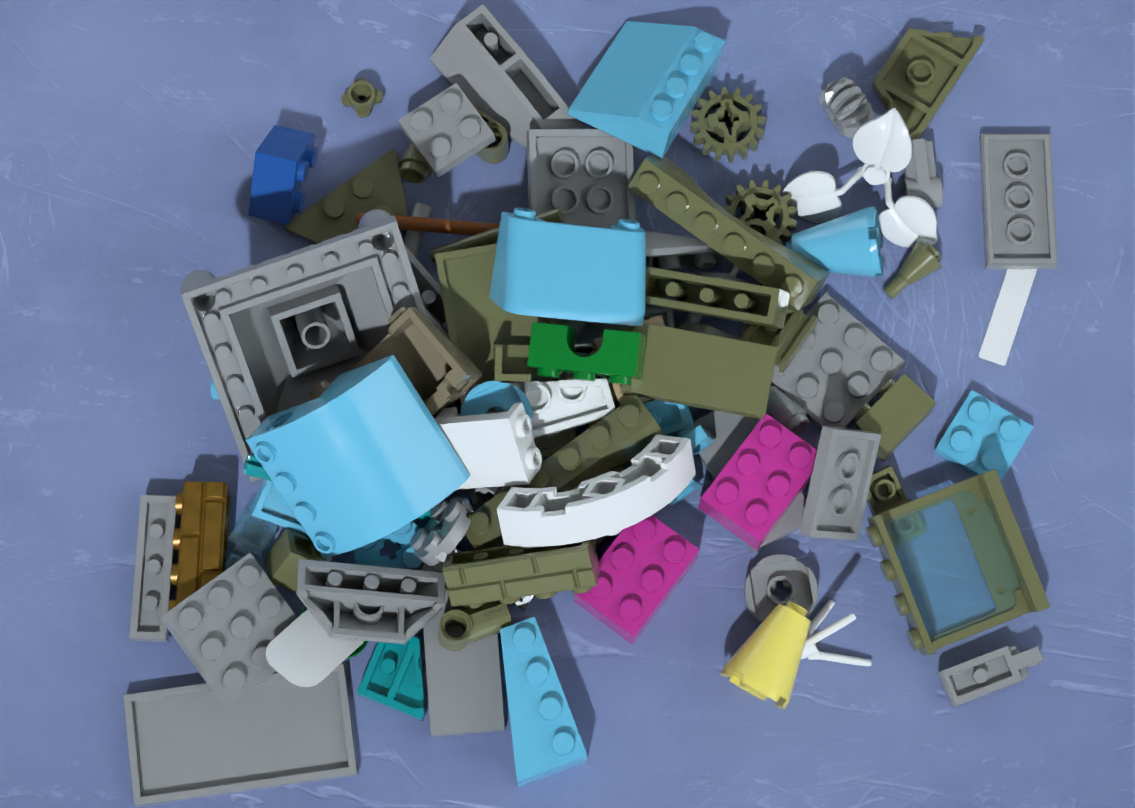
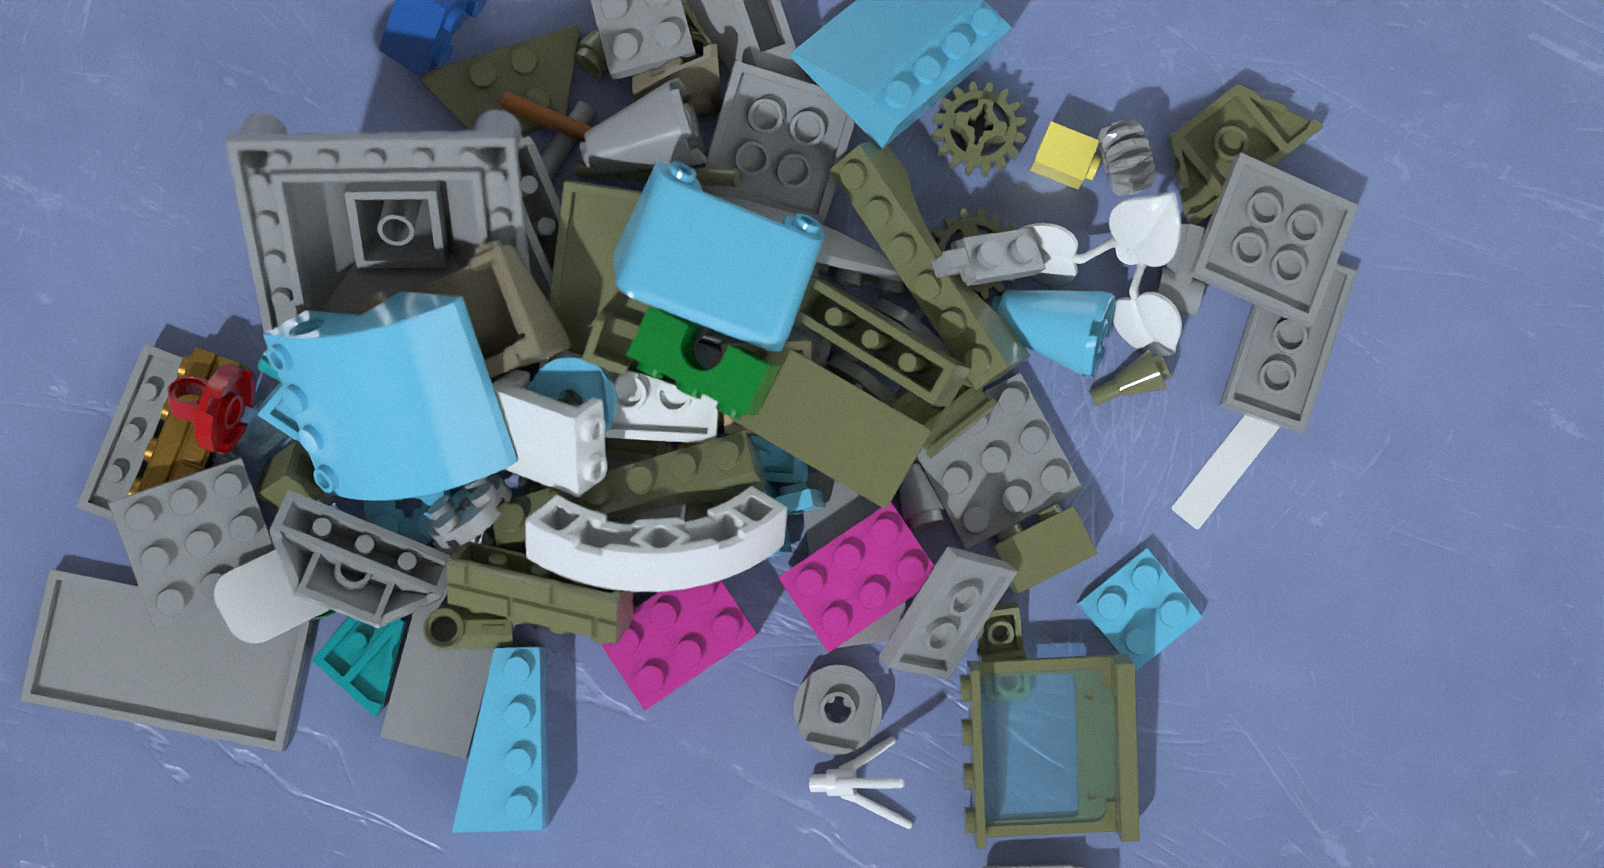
camera: 15 degrees right, 10 degrees up
(216, 516) = (219, 407): none -> red tile
(477, 205) = (646, 132): none -> light grey cone
(490, 167) = (699, 77): none -> dark tan wing
(771, 655) = (794, 787): light yellow cone -> none
(774, 209) = (991, 257): none -> light grey hinge
(800, 122) = (1066, 156): none -> light yellow brick
(979, 130) = (1273, 240): none -> light grey plate

